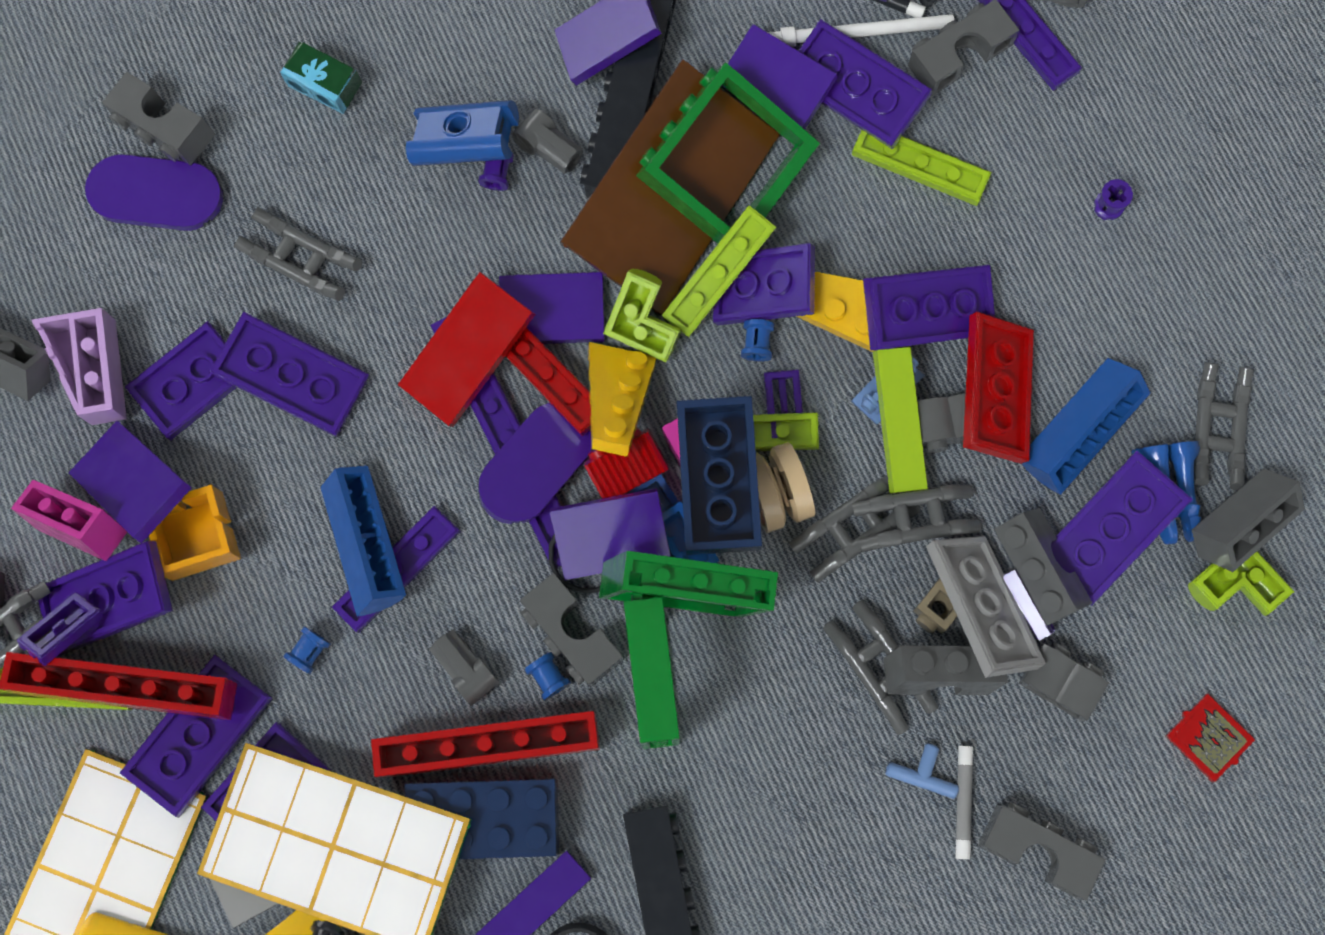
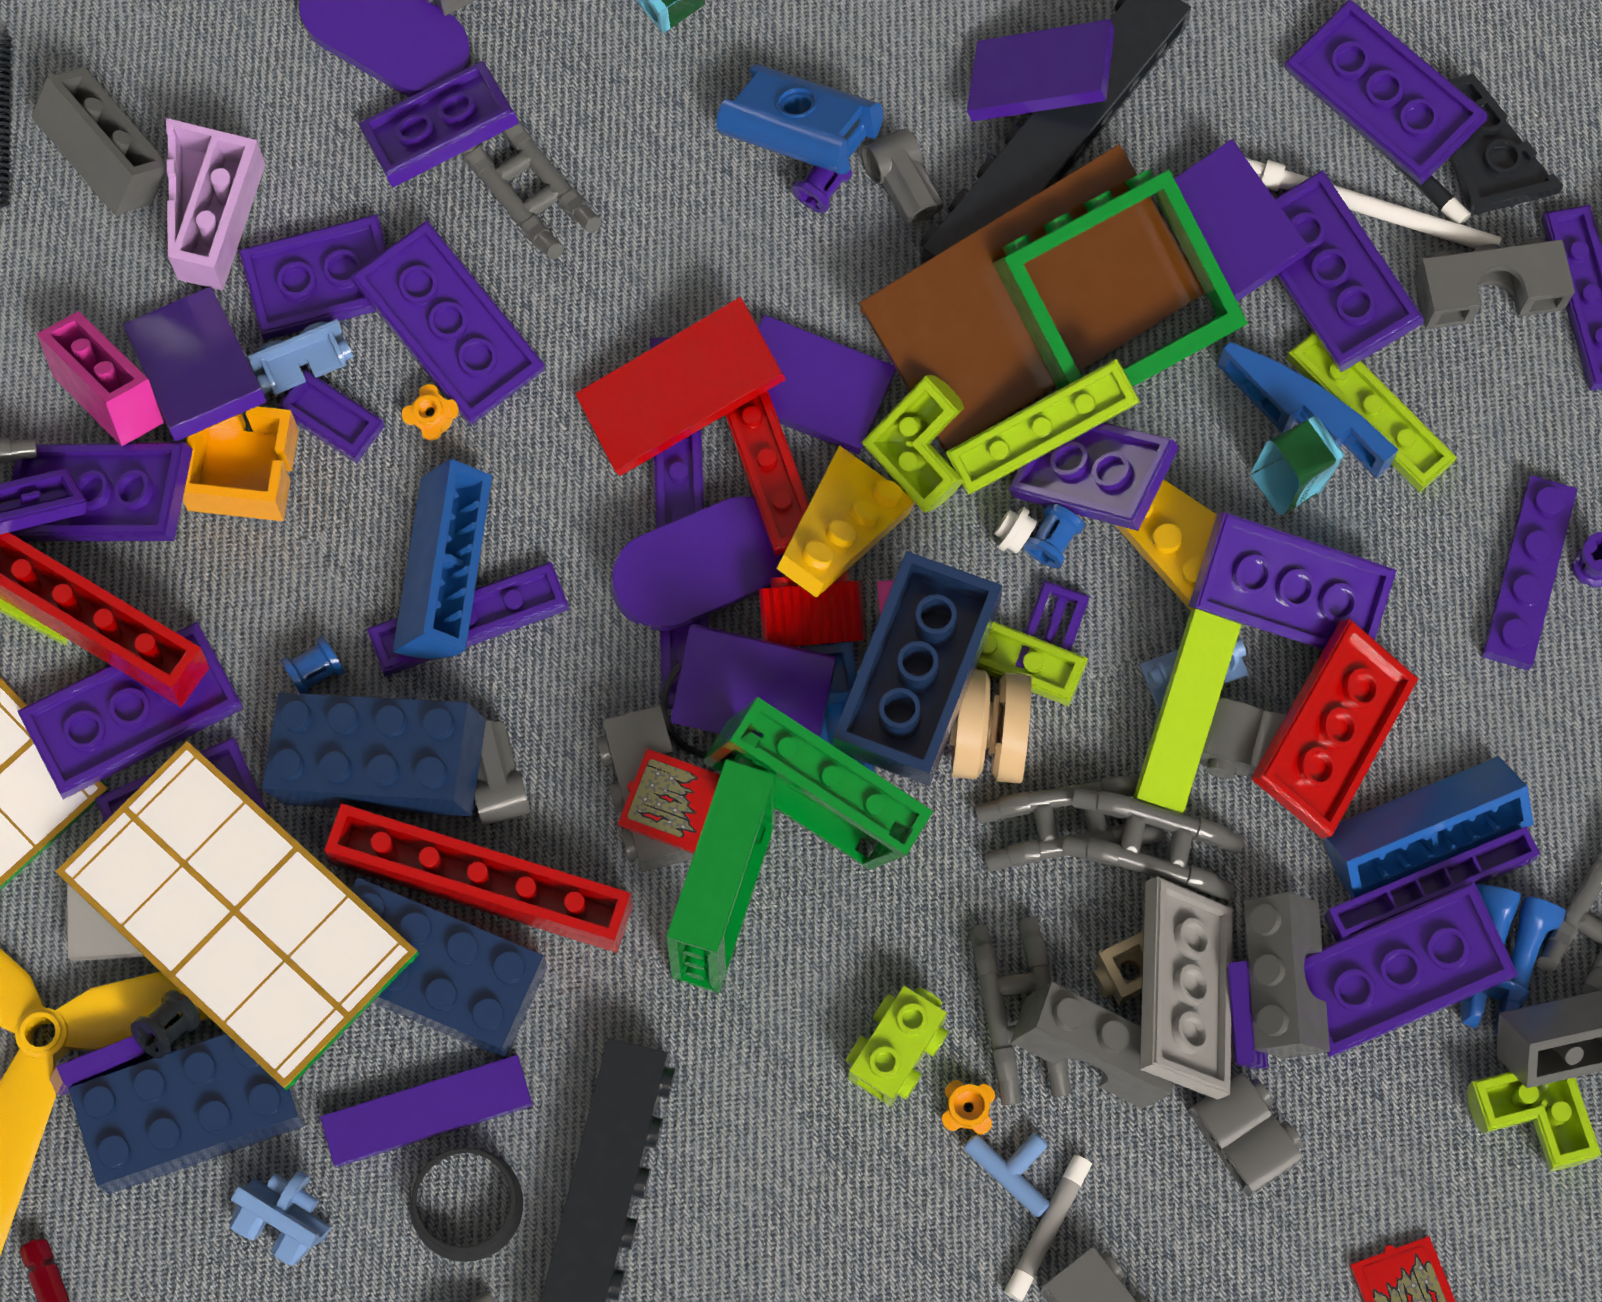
camera: 20 degrees right, 5 degrees down
(188, 451) = (279, 361): none -> medium blue hinge
(220, 241) = (438, 123): none -> dark purple tile
(240, 472) = (332, 417): none -> dark purple tile
(313, 447) = (443, 415): none -> light orange plate
(377, 693) = (374, 753): none -> dark blue brick
(547, 676) = (594, 831): blue bush -> none
(592, 634) = (669, 800): none -> piece
(730, 347) = (1015, 530): none -> white plate
(814, 716) = (905, 1032): none -> lime brick
(867, 179) = (1292, 398): none -> blue slope
(873, 756) = (978, 1096): none -> light orange plate
(899, 221) = (1303, 472): none -> piece
(1071, 228) = (1529, 573): none -> dark purple plate
(1105, 462) = (1475, 865): none -> dark purple piece

